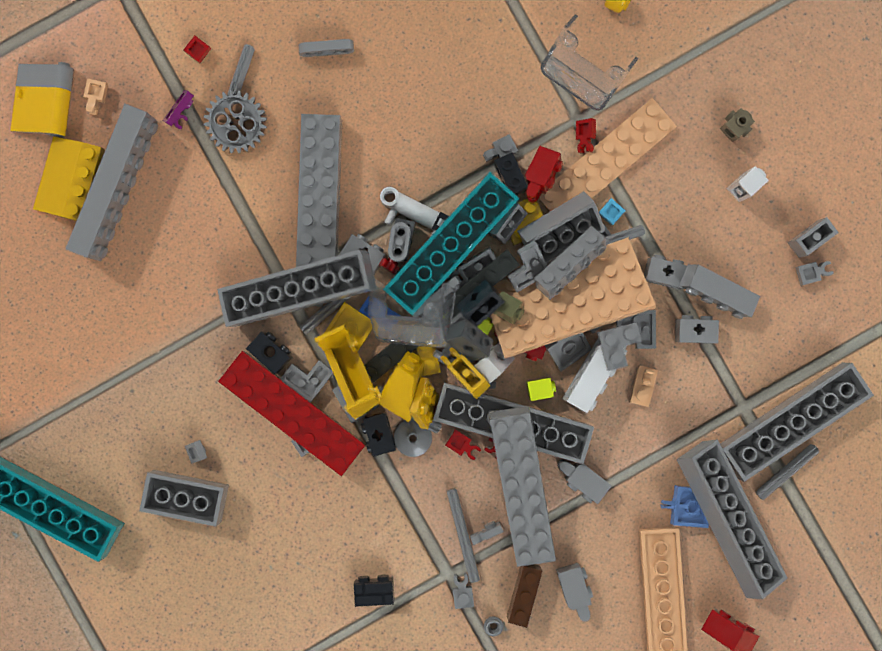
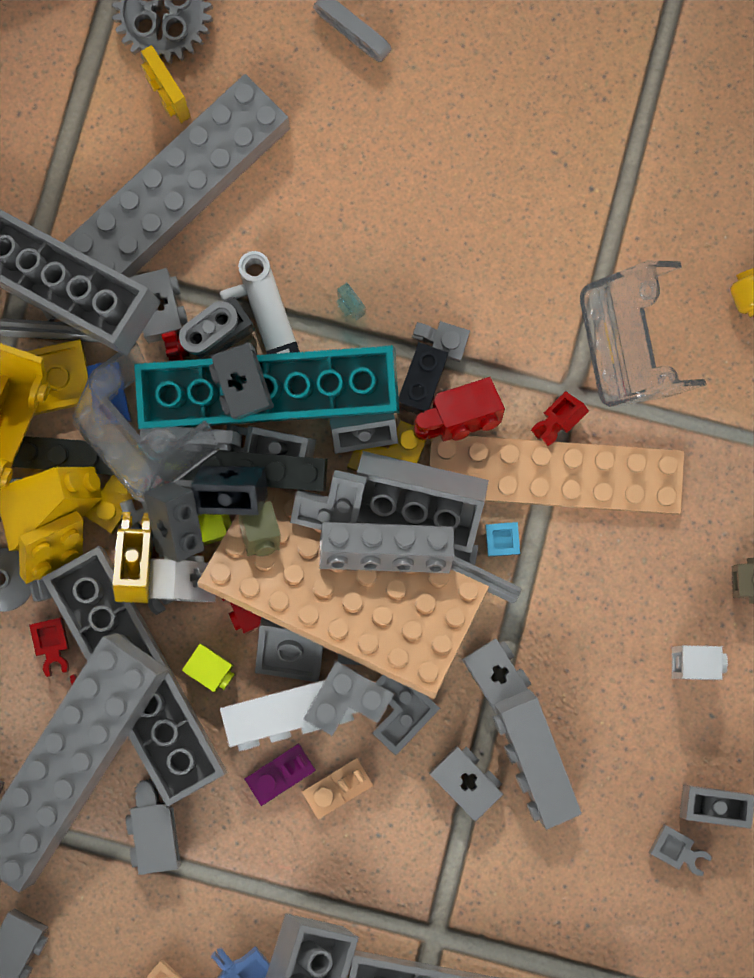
camera: 45 degrees right, 5 degrees down
(264, 152) = (161, 79): none -> yellow plate
(445, 172) = (349, 302): none -> clear light blue plate
(445, 262) = (242, 362): none -> dark grey brick
(613, 404) = (280, 774): none -> magenta plate

